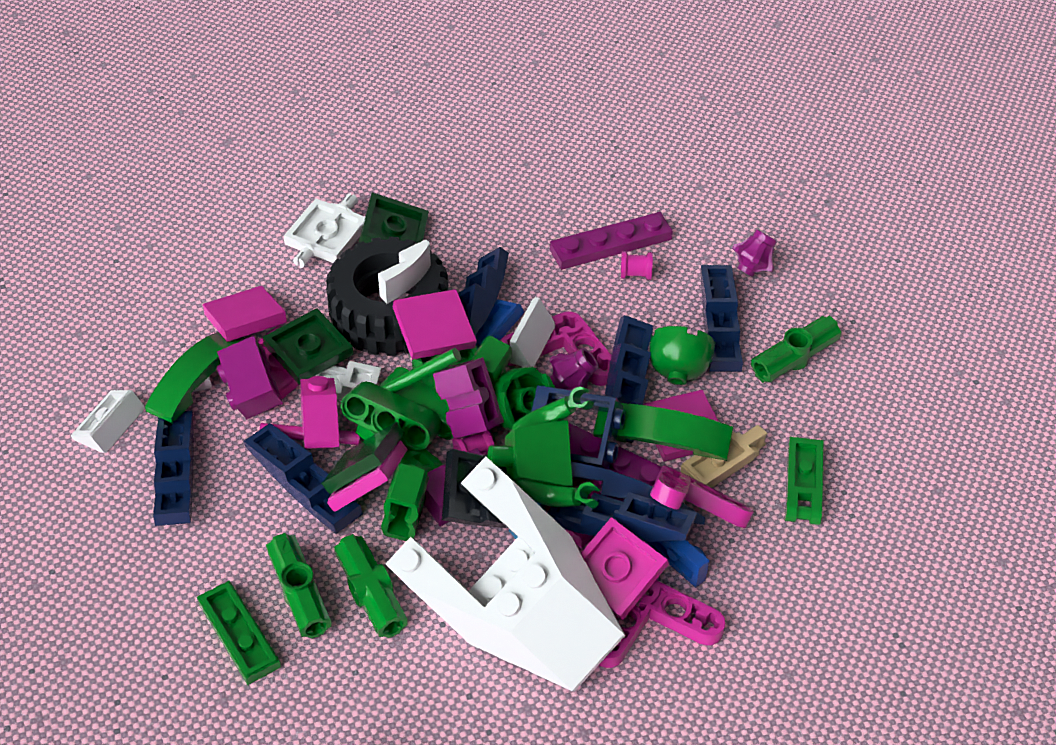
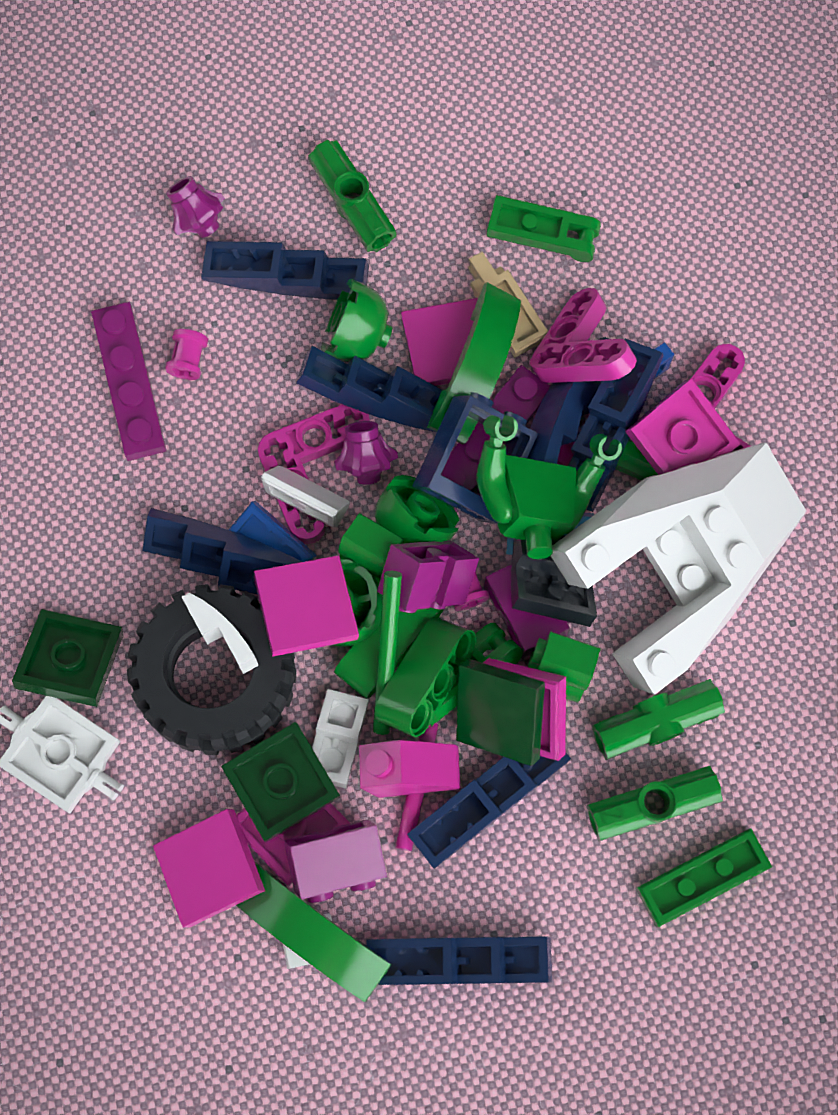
camera: 85 degrees left, 25 degrees up
(109, 420) = (365, 1056): white slope -> none

